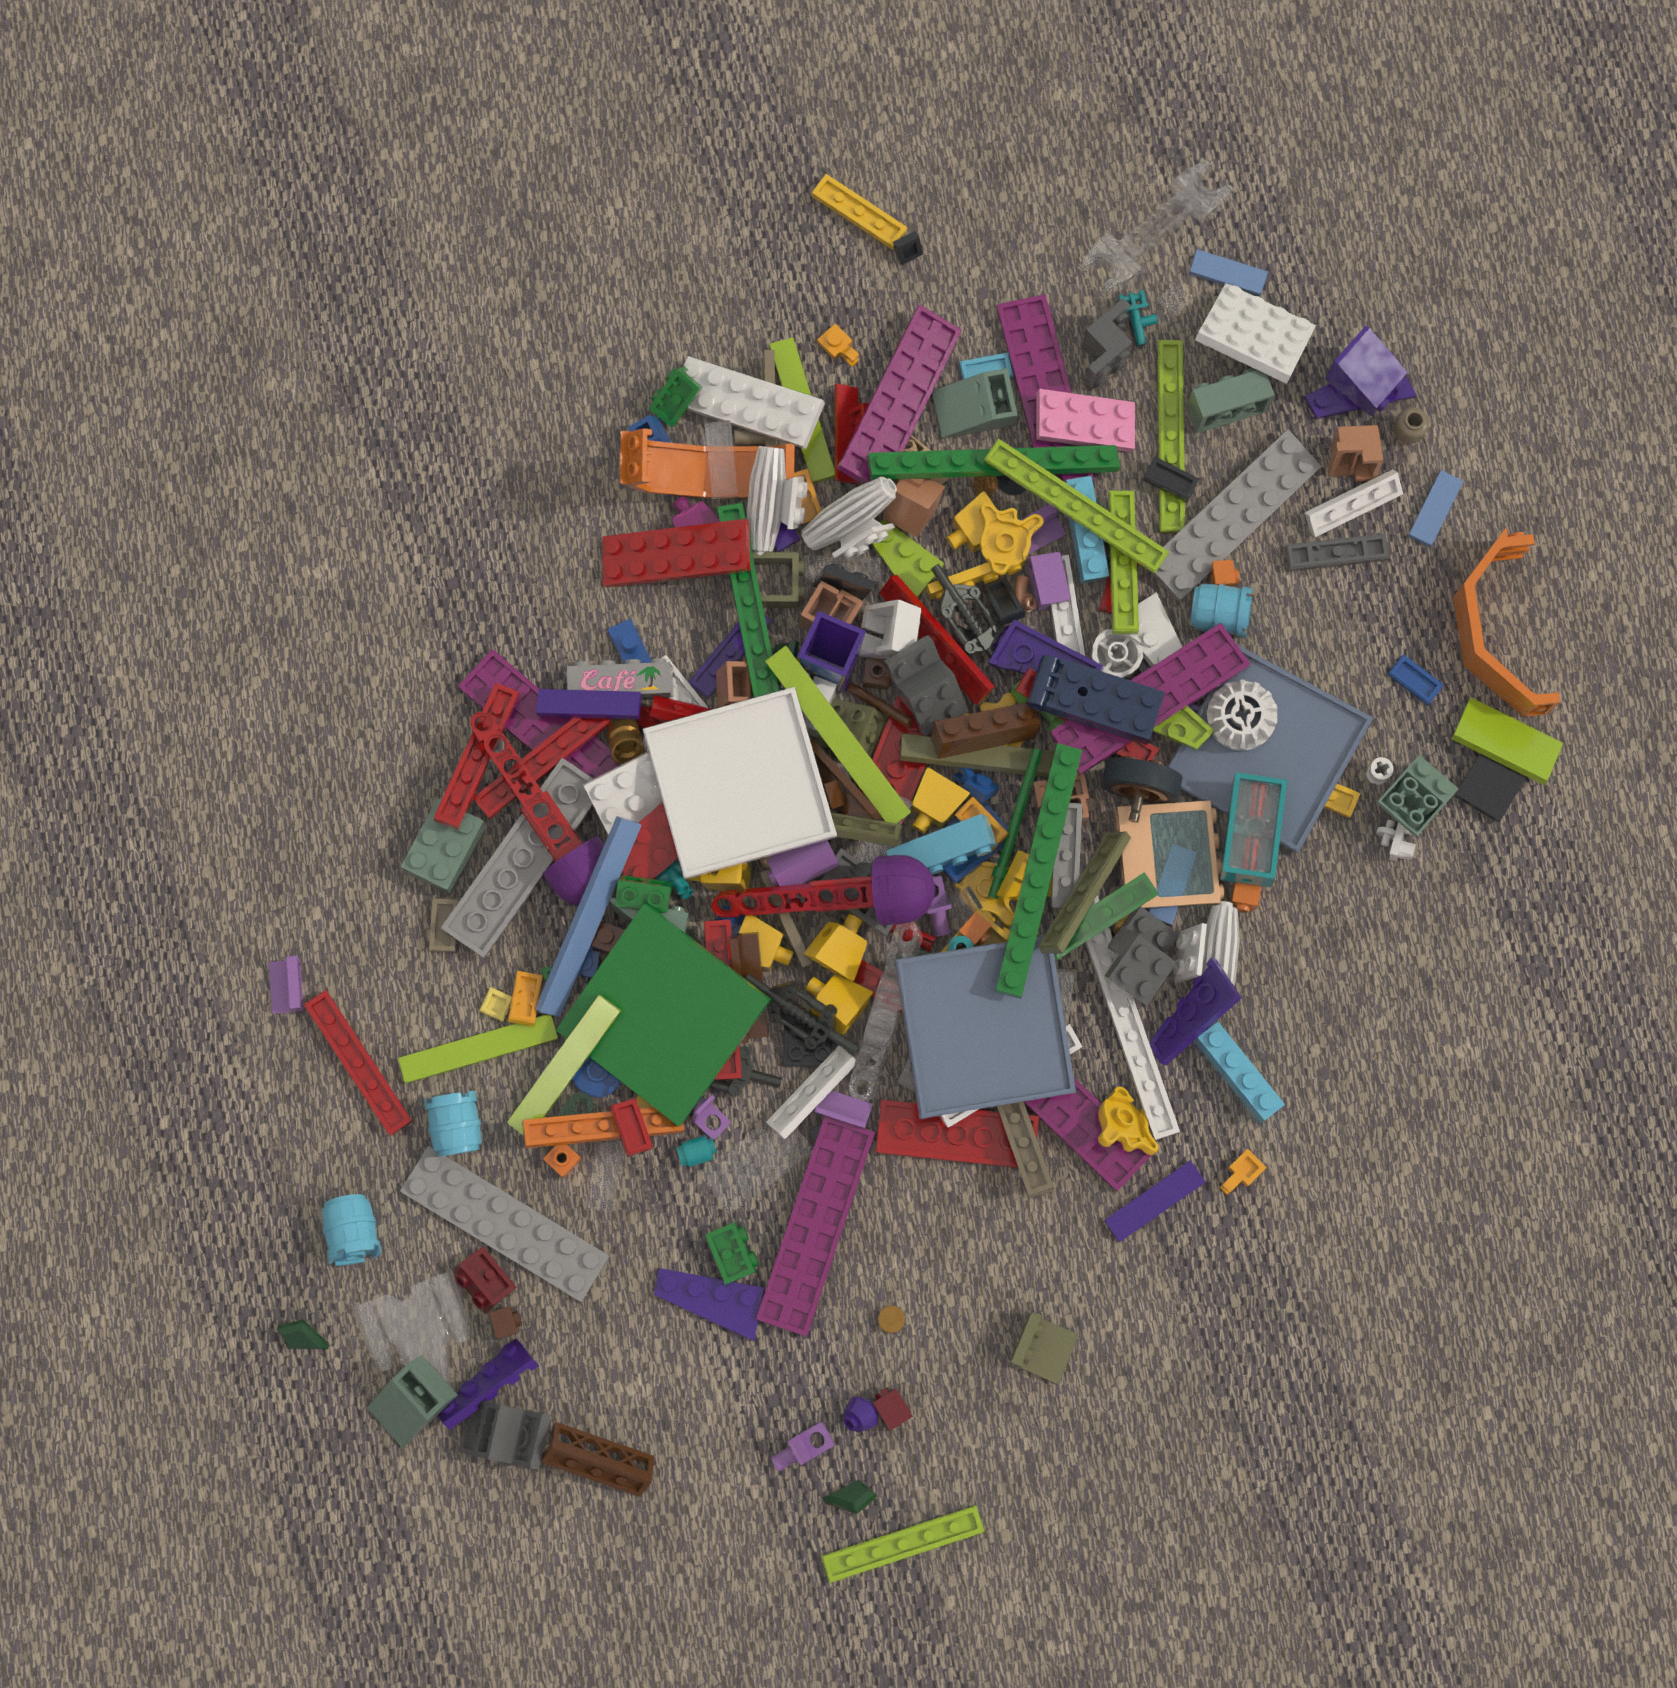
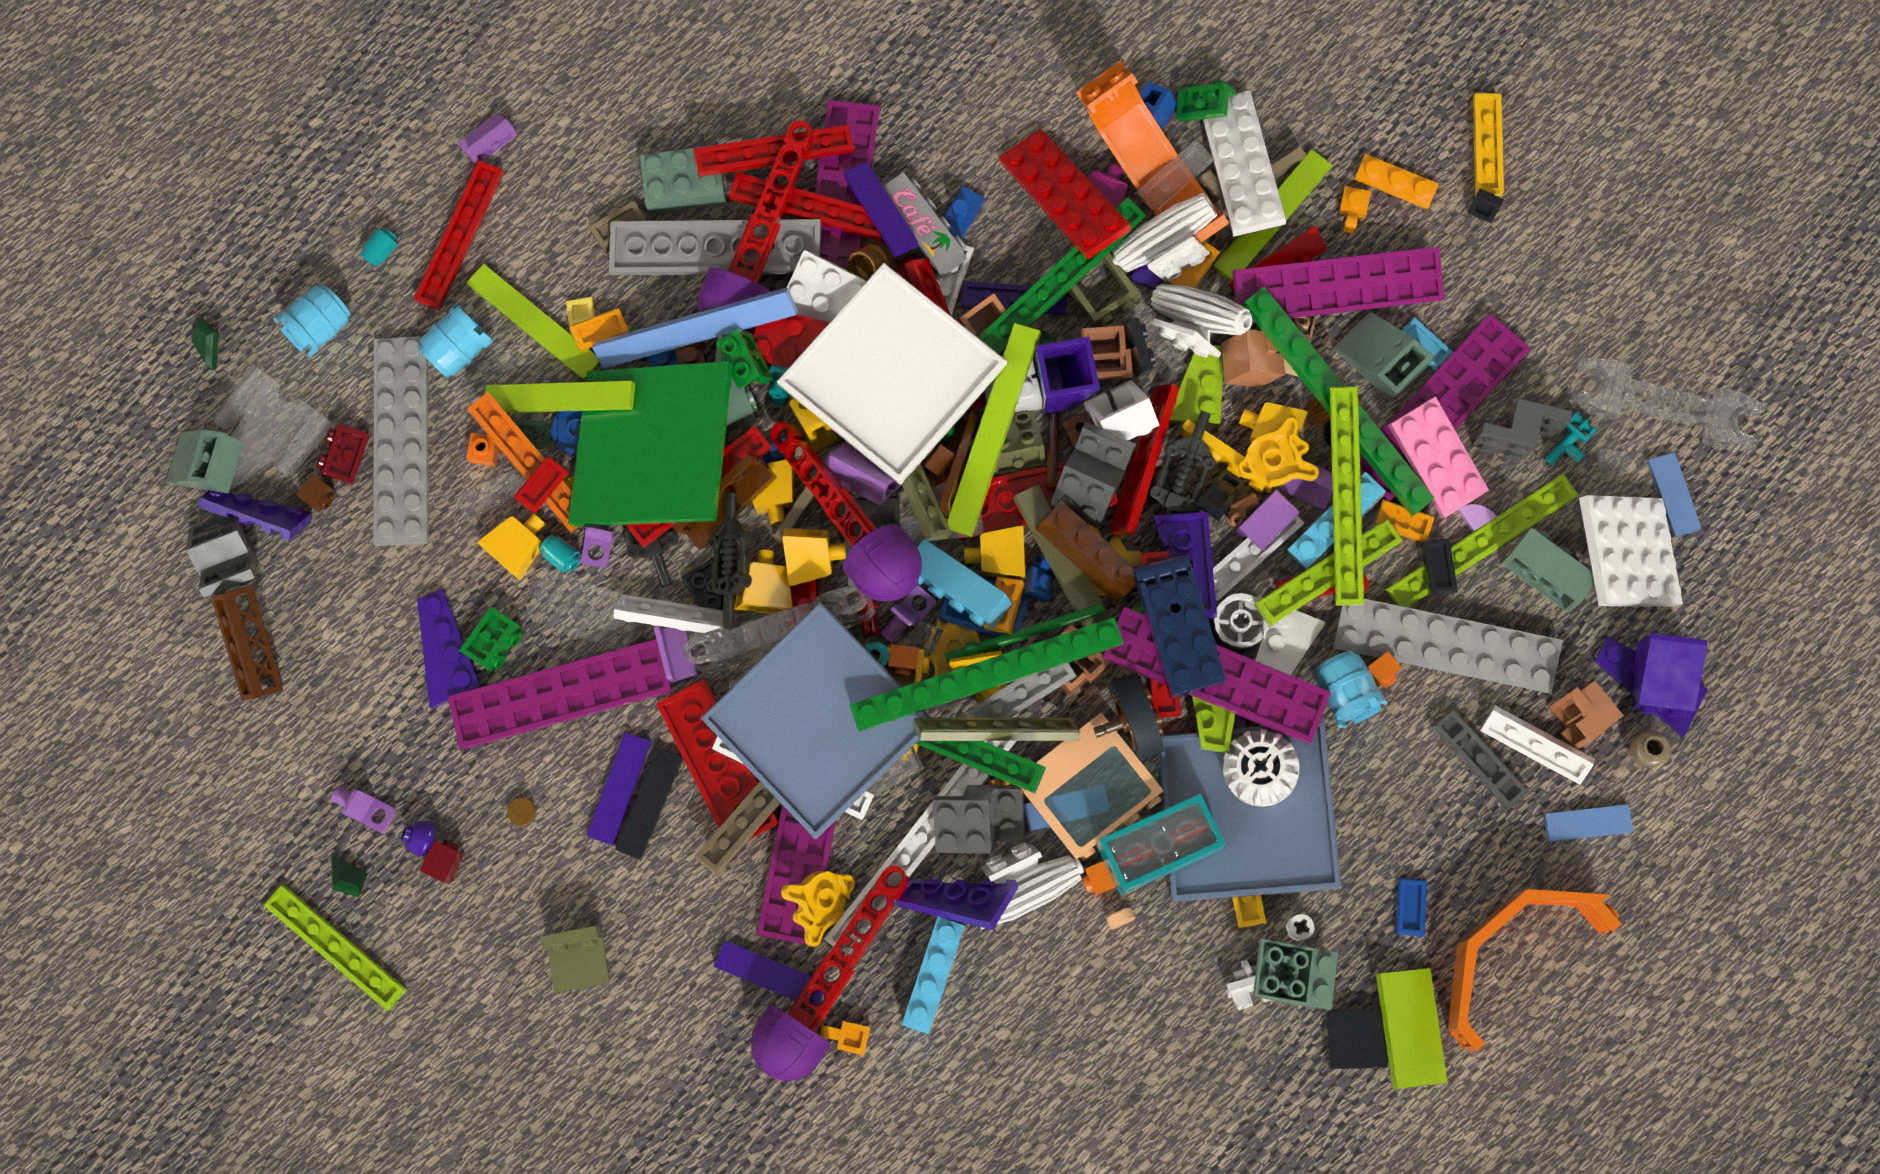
camera: 70 degrees right, 0 degrees up
(321, 1136) = (378, 247): none -> teal brick
(662, 1183) = (514, 544): none -> yellow torso
(839, 299) = (1396, 181): none -> light orange plate
(924, 1227) = (619, 789): none -> dark purple tile
(953, 1210) = (649, 803): none -> black tile
(1120, 481) = (1412, 527): none -> light orange plate
(1148, 425) = (1476, 515): none -> lavender tile
(1223, 1217) = (787, 1043): none -> piece
(1285, 900) = (1120, 918): none -> light nougat tile

